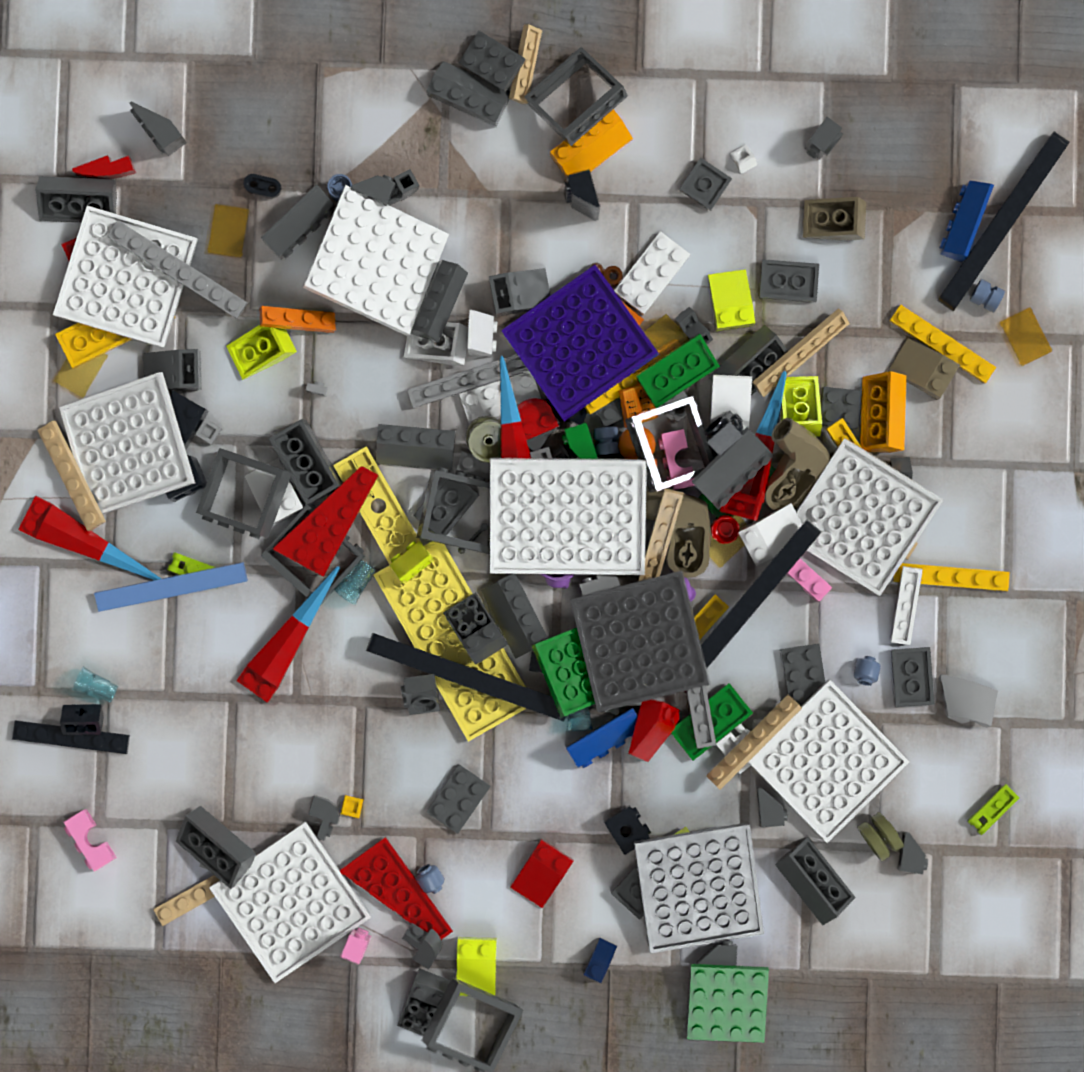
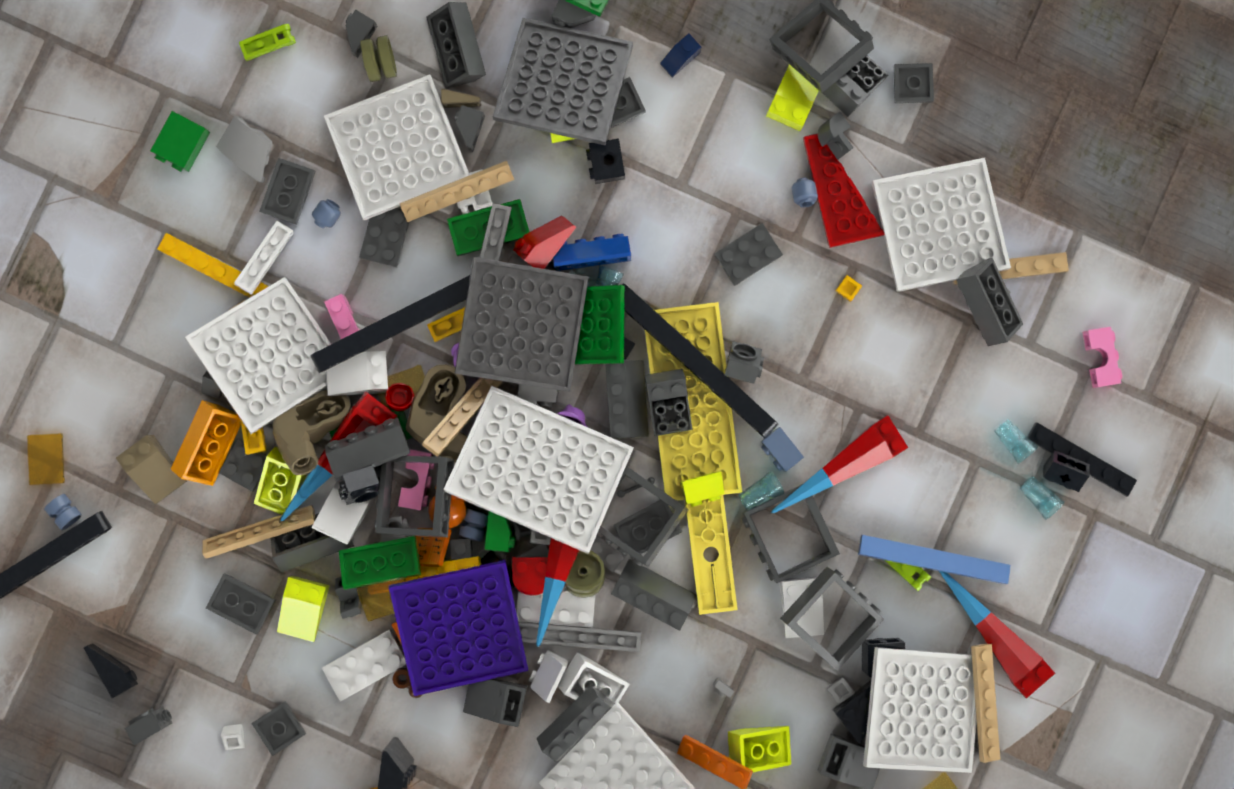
camera: 160 degrees left, 0 degrees up
(139, 727) = (1015, 441): none -> clear light blue plant
(306, 461) = (761, 623): dark grey slope -> none
(324, 530) = (772, 551): red wing -> none
(328, 812) = (873, 291): dark grey brick -> none
(352, 629) = (781, 449): none -> sand blue brick
(356, 945) = (898, 157): bright pink arch -> none
(370, 1027) = (913, 83): none -> dark grey plate
(542, 873) = (700, 155): red slope -> none
(793, 829) = (454, 99): none -> dark tan slope
(835, 218) = (172, 644): dark tan slope -> none
(876, 170) = (113, 673): none -> black slope
(942, 343) = (124, 485): yellow plate -> none
(966, 220) = (50, 590): blue slope -> none
(1032, 680) = (179, 142): none -> green brick

